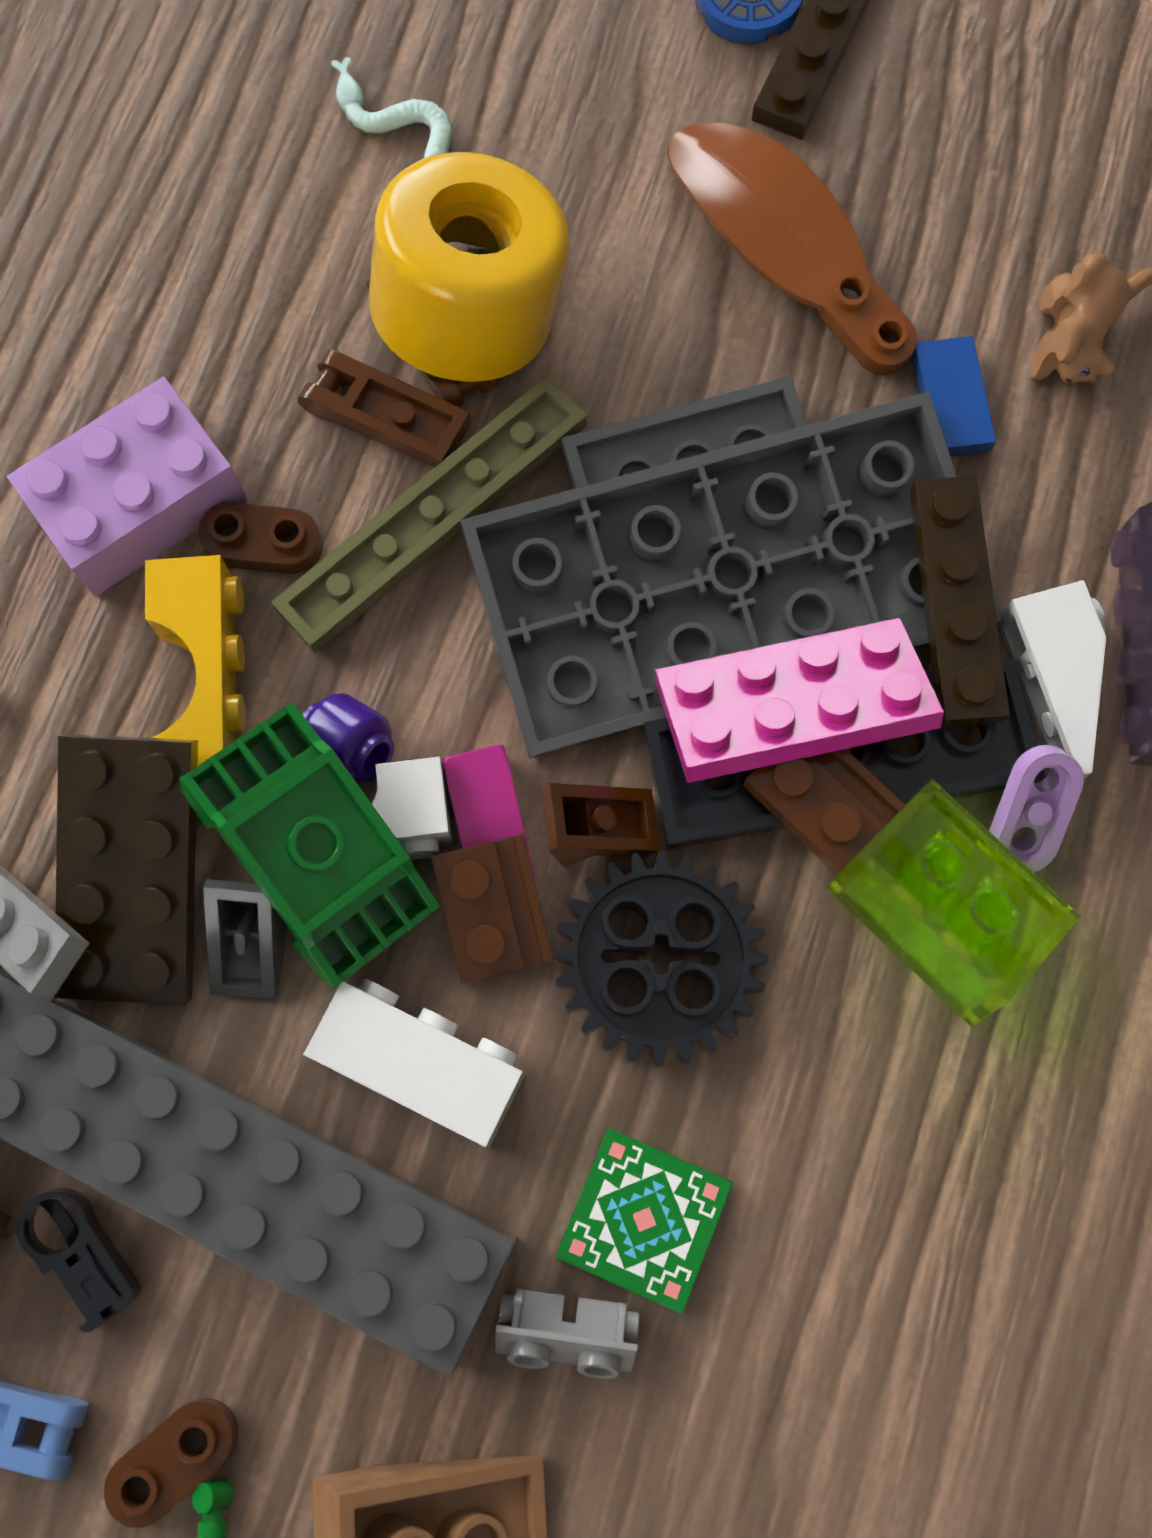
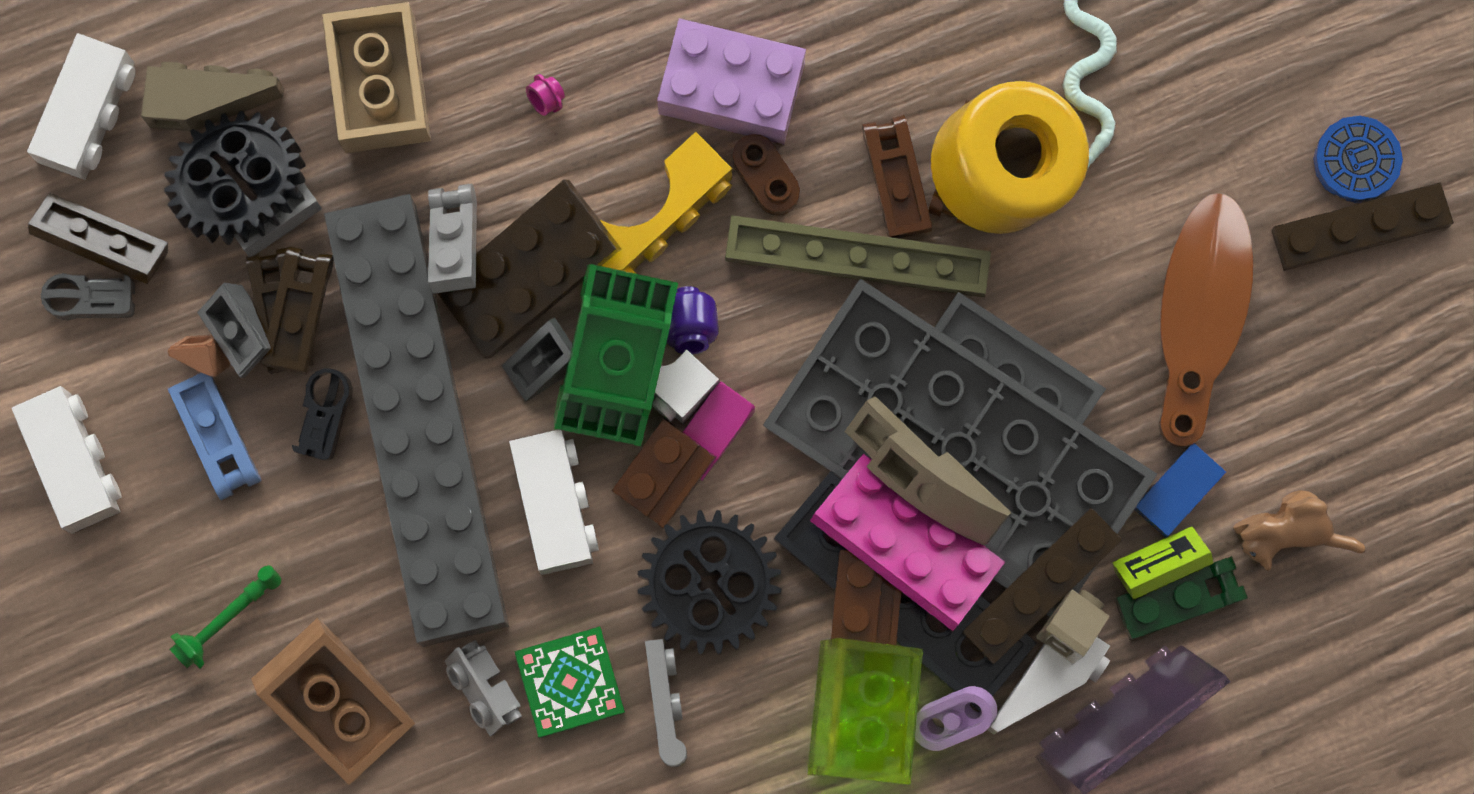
camera: 50 degrees right, 5 degrees up
(169, 1463) = (267, 543): reddish brown plate -> none
(599, 821) = (755, 492): reddish brown slope -> none
(737, 622) = (928, 482): none -> dark tan slope
(762, 1125) = (666, 705): none -> light grey plate
(1022, 467) = (1163, 562): none -> lime tile
(1049, 590) = (1074, 625): none -> dark tan slope
(1070, 485) = (1180, 600): none -> dark green plate

